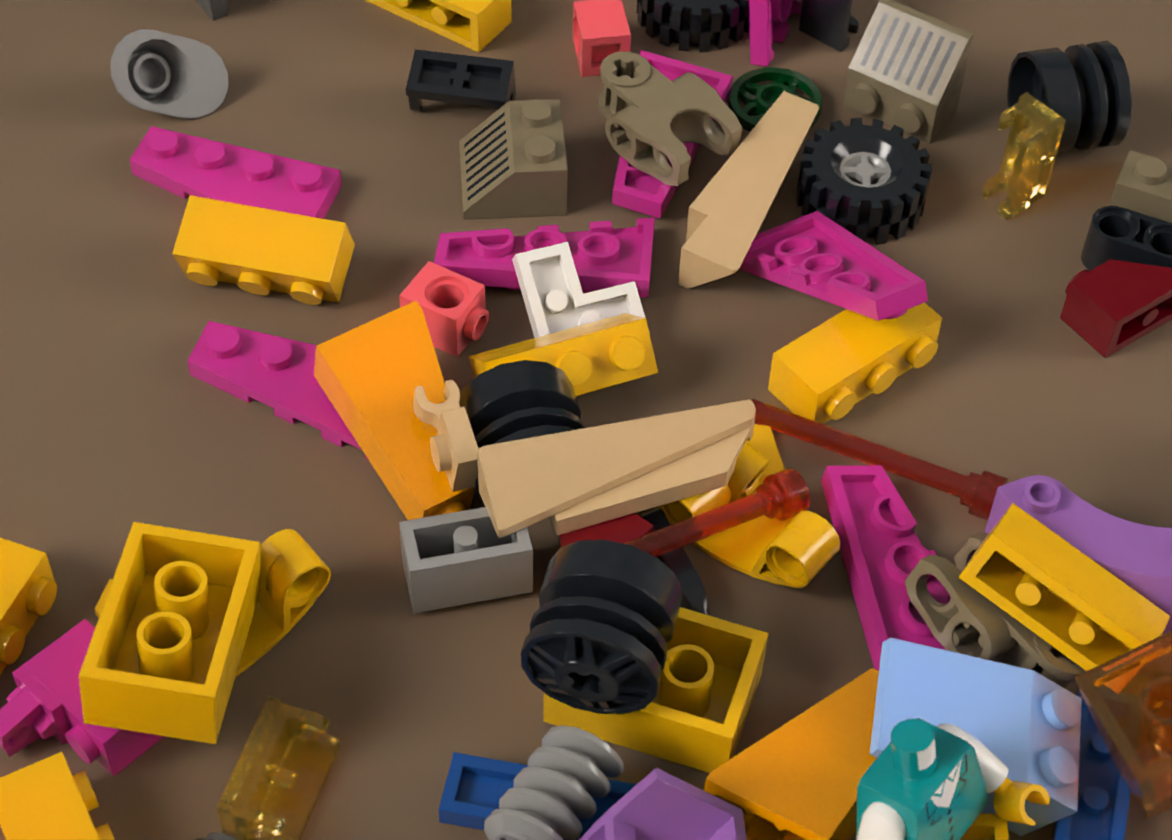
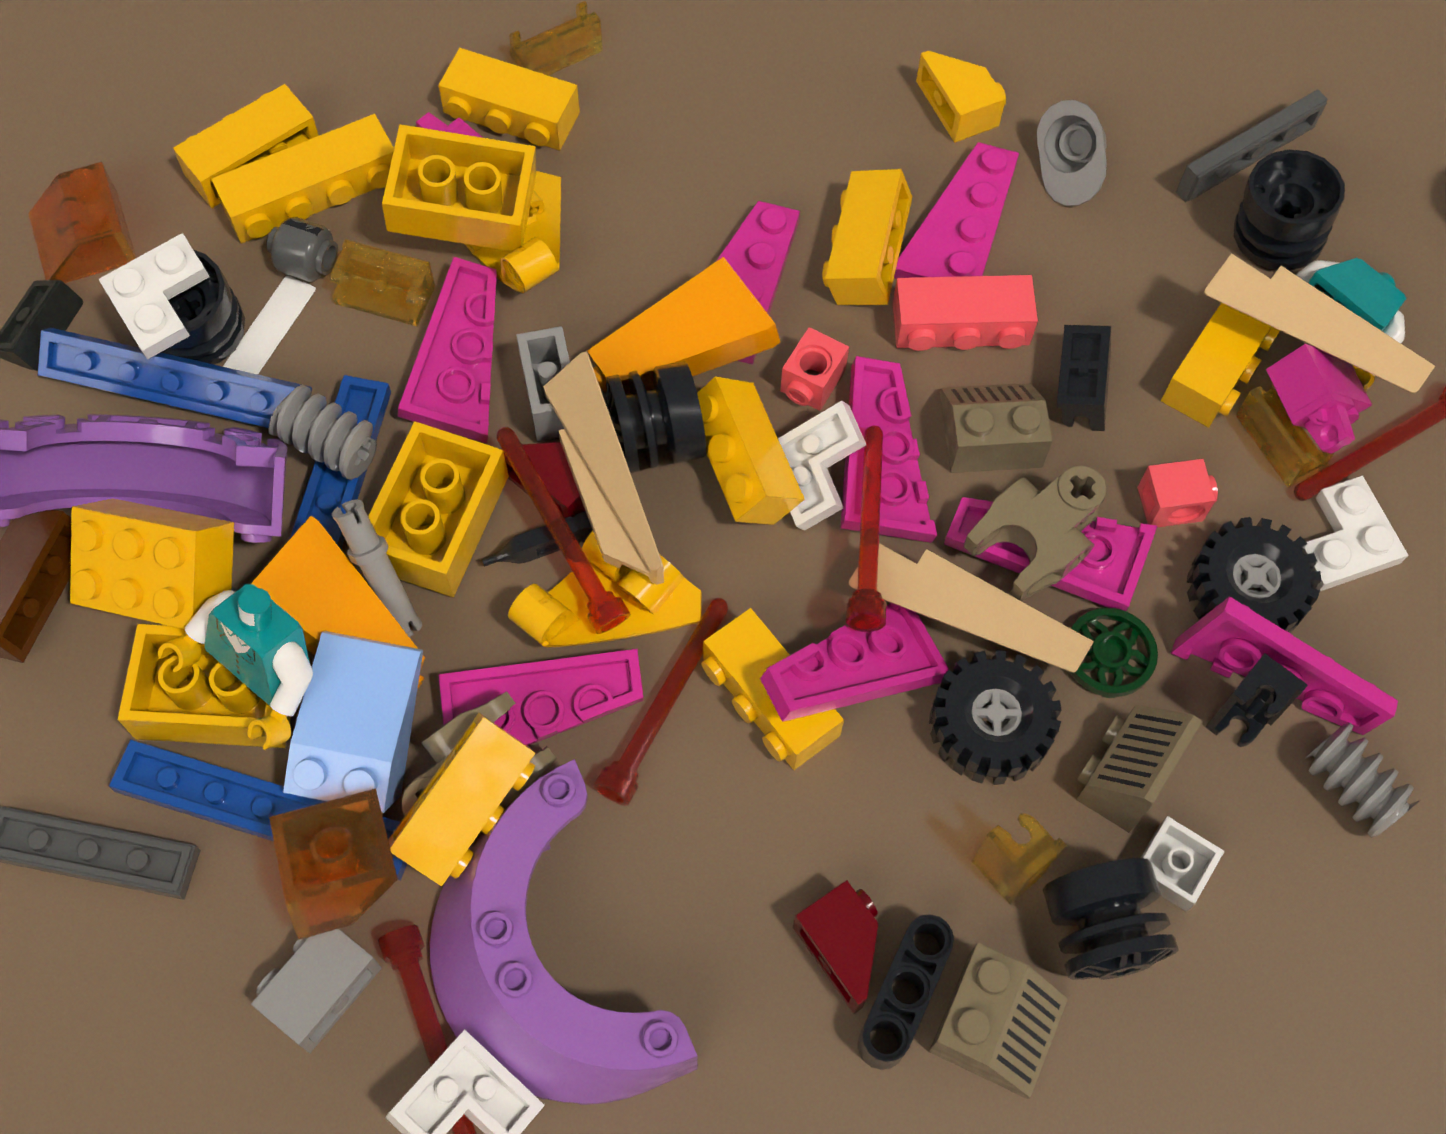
camera: 90 degrees right, 15 degrees up
(57, 169) = (961, 94): none -> yellow slope
(375, 178) = (964, 312): none -> coral brick
(427, 689) = (454, 362): none -> dark pink wing
(454, 445) = (632, 353): tan plate -> none
(602, 627) = (417, 433): black wheel -> none
(750, 705) = (370, 554): none -> light grey pin
(771, 245) = (866, 607): none -> clear red piece
(988, 73) = (1181, 862): none -> white piece

